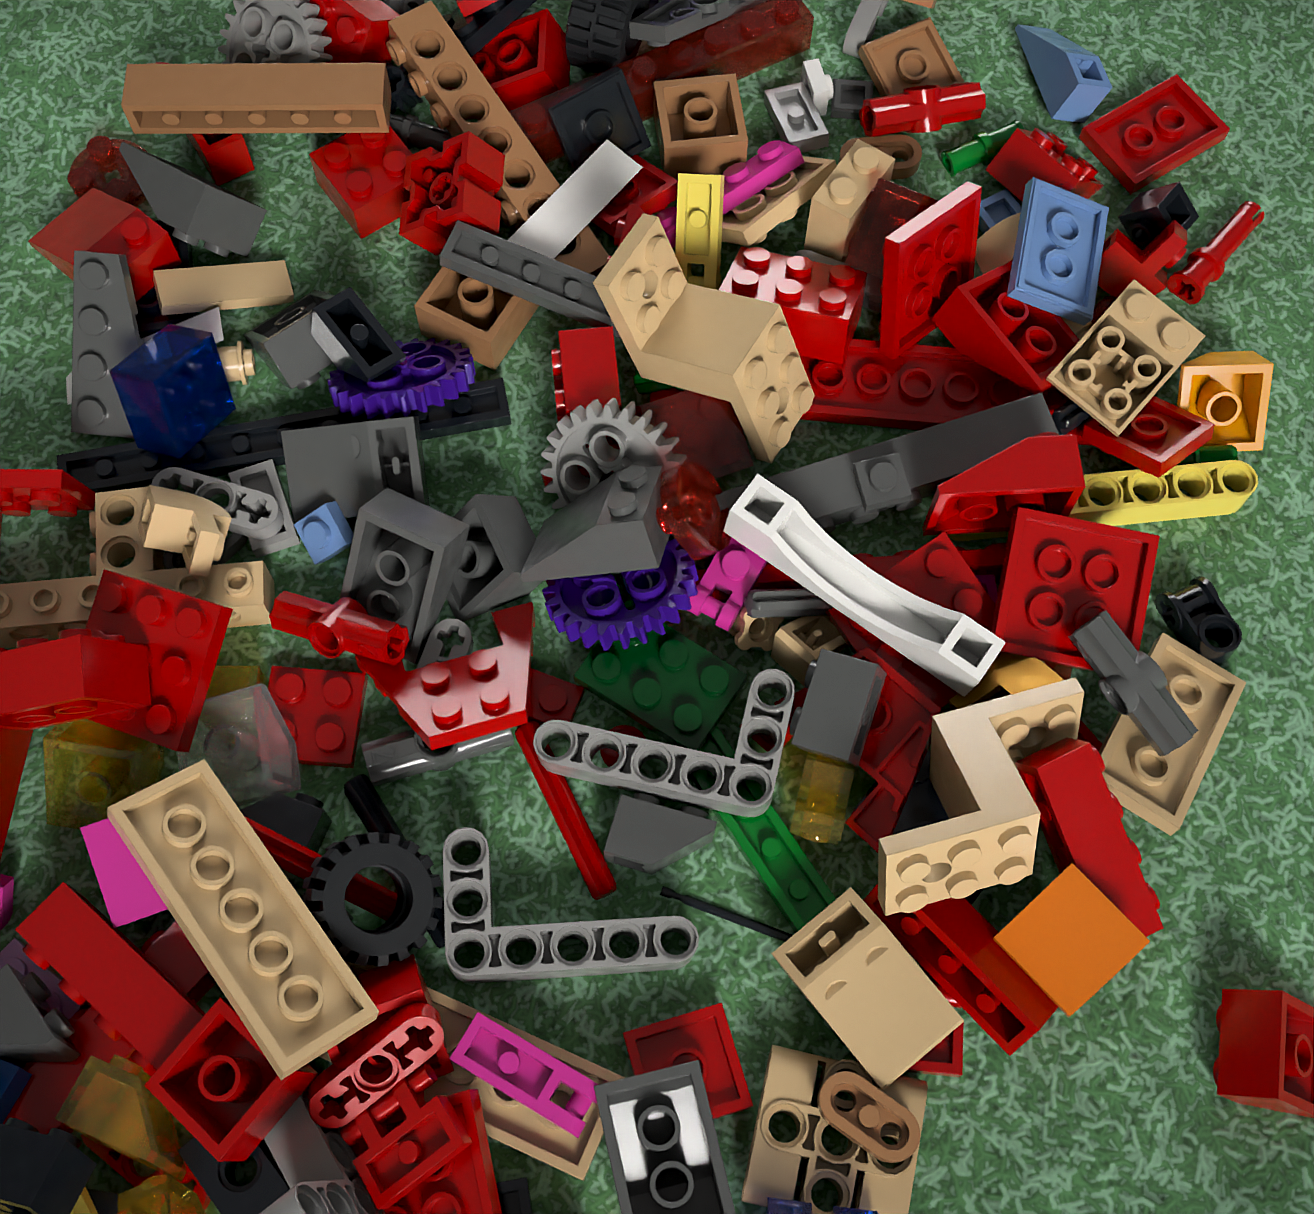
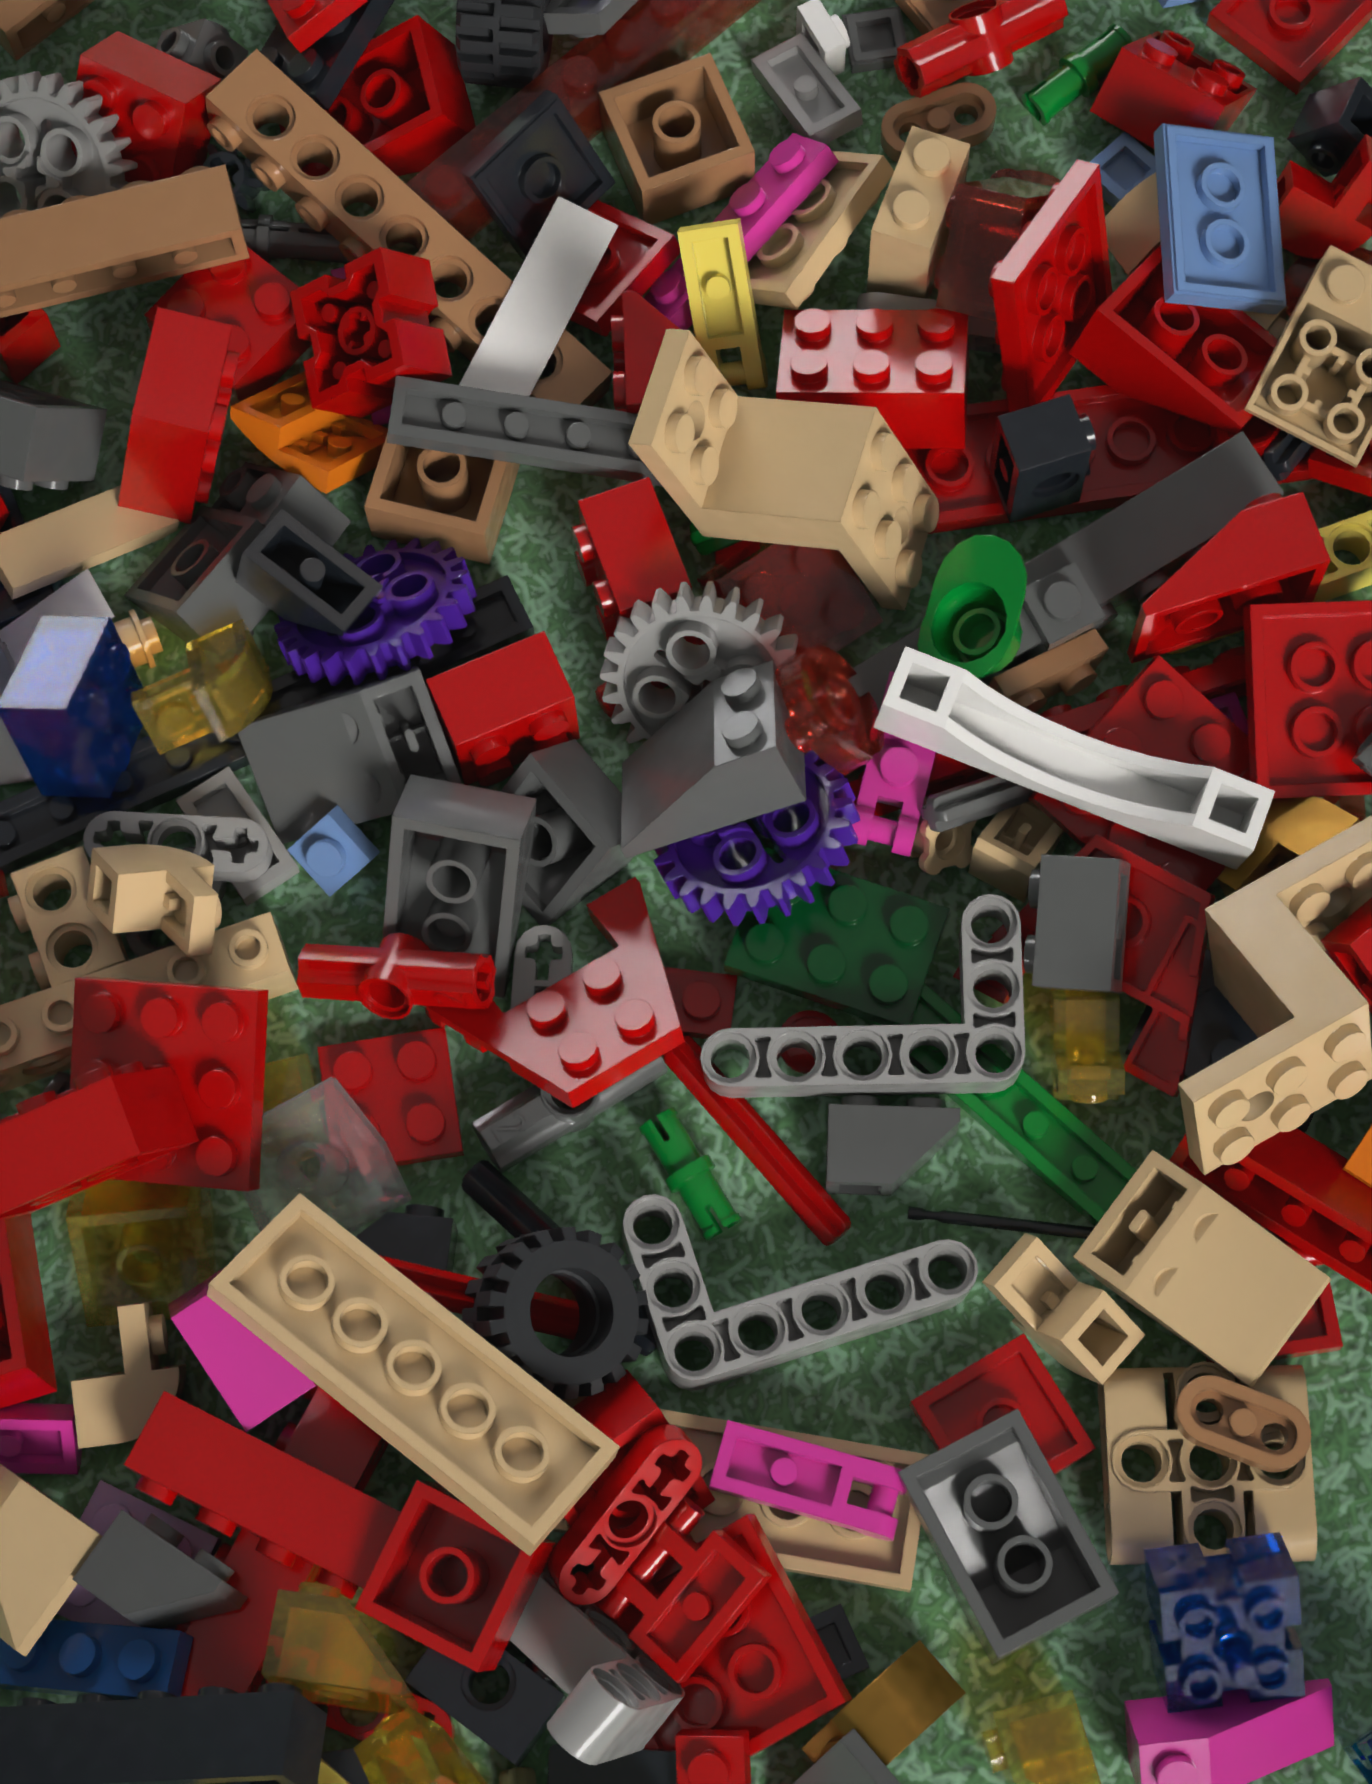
camera: 10 degrees left, 5 degrees up
(32, 881) = (119, 1404): none -> tan brick
(274, 405) = (217, 693): none -> clear yellow brick
(303, 216) = (178, 415): none -> red brick
(370, 291) = (264, 491): none -> dark grey slope
(390, 257) = (309, 441): none -> orange slope
(468, 459) = (504, 708): none -> red brick
(509, 821) = (689, 1173): none -> green pin
(753, 994) = (1060, 1314): none -> tan brick
(820, 464) = (976, 606): none -> green piece
(867, 529) = (1063, 668): none -> medium nougat plate
(893, 377) = (1041, 457): none -> black brick

